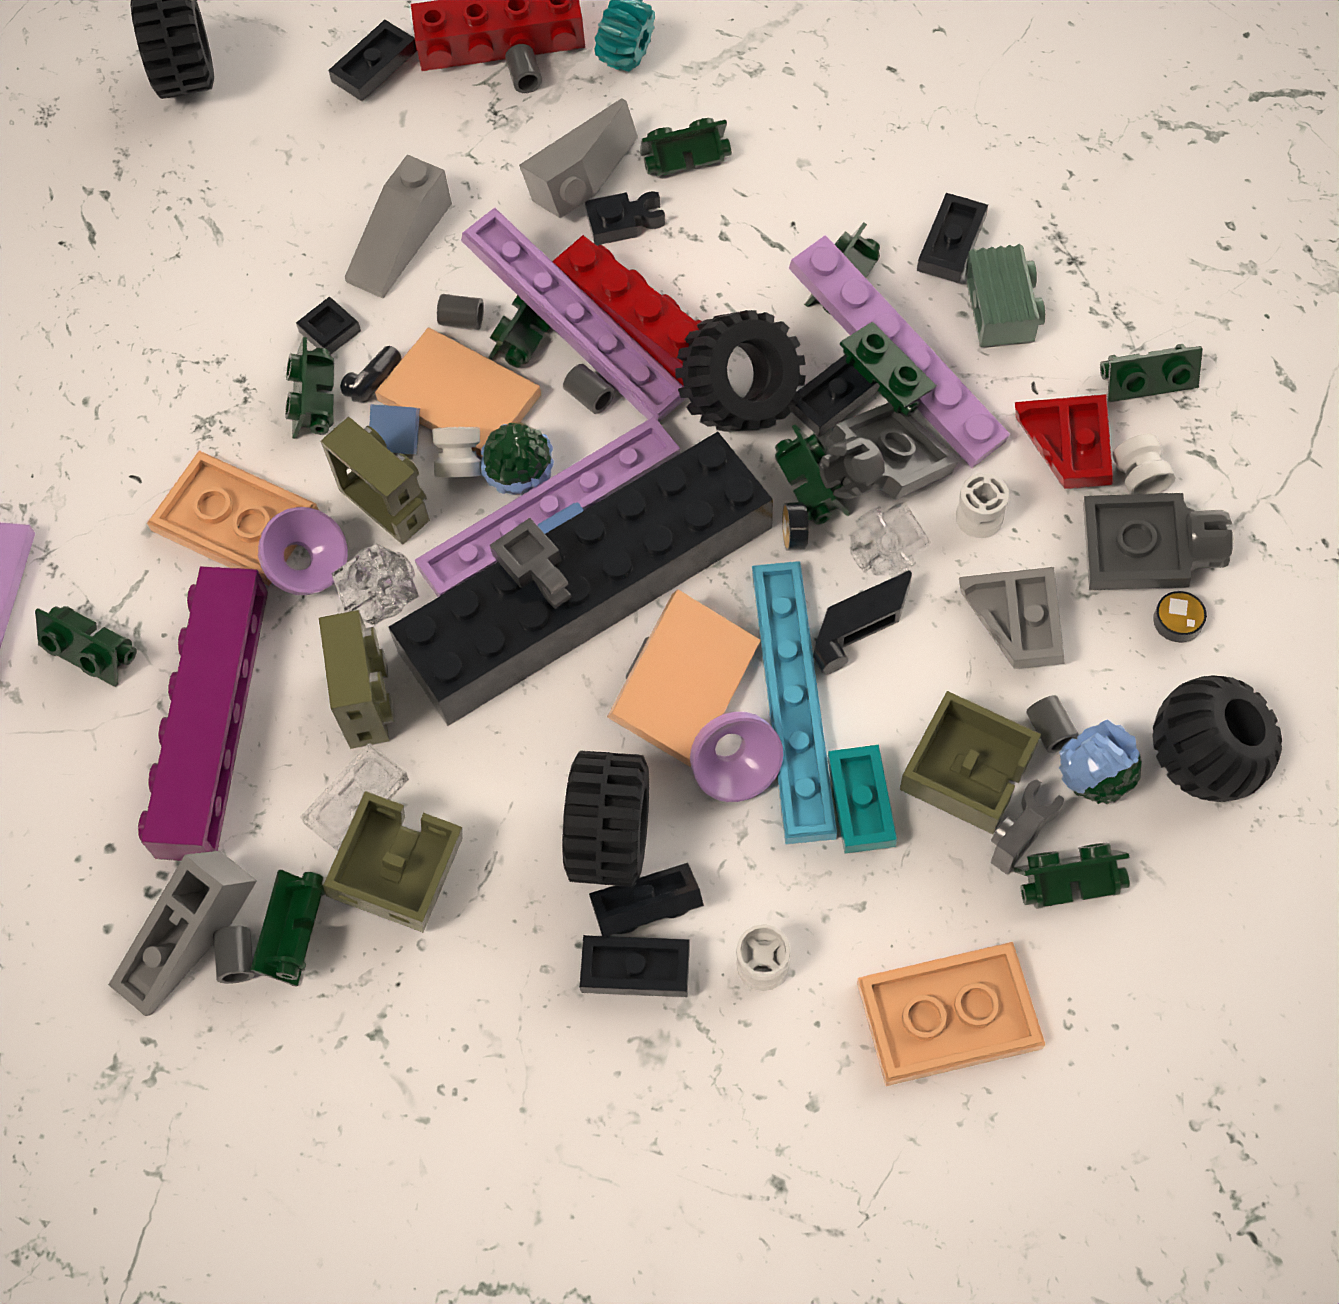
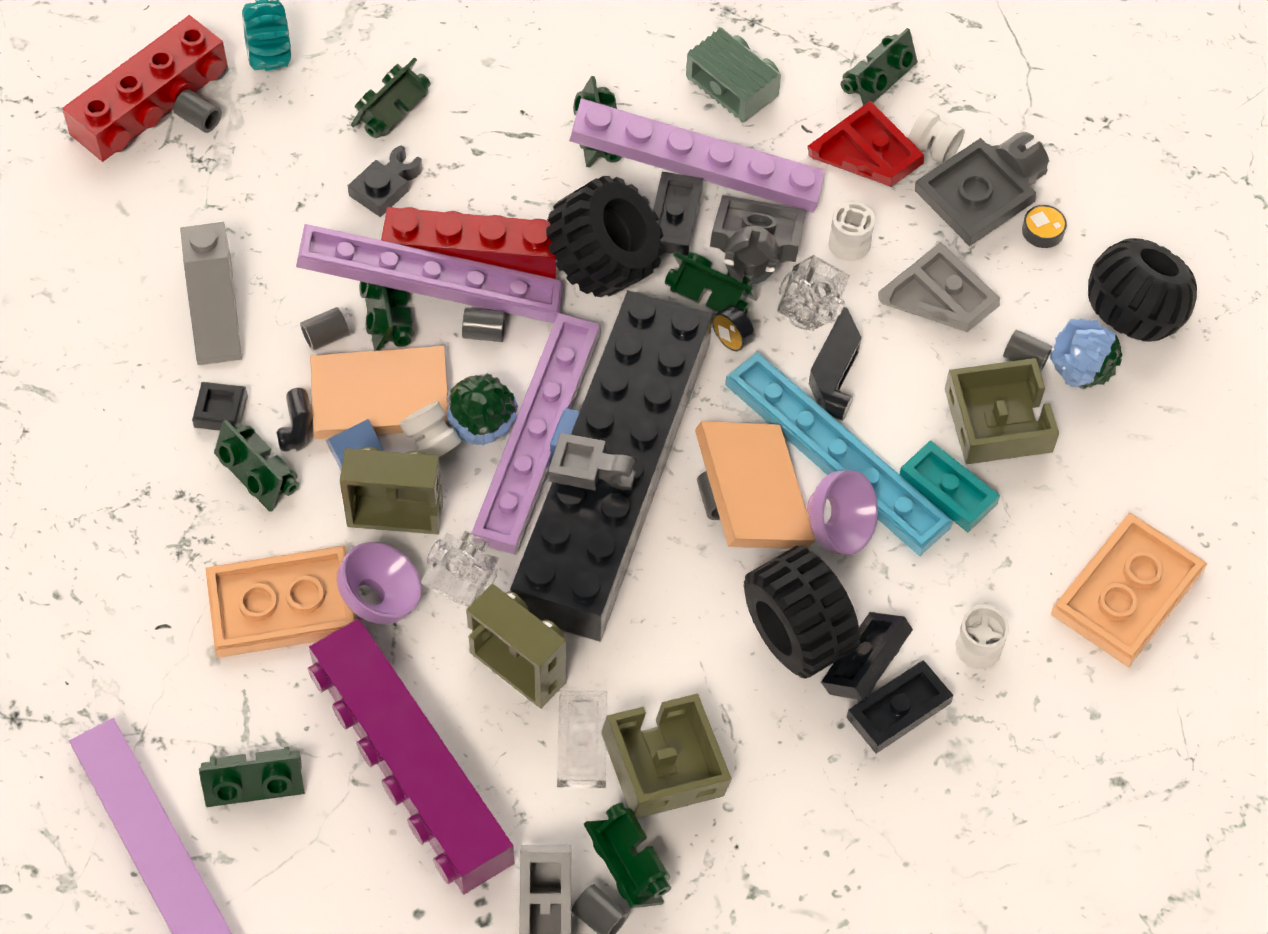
camera: 45 degrees left, 5 degrees down
(373, 60) = (58, 174): black plate -> none
(580, 161) = (318, 162): light grey slope -> none
(883, 361) = (727, 175): dark green hinge -> none
(952, 237) = (658, 53): black plate -> none
(1016, 836) = (1074, 439): flat silver plate -> none
(1051, 877) = (1114, 450): dark green hinge -> none

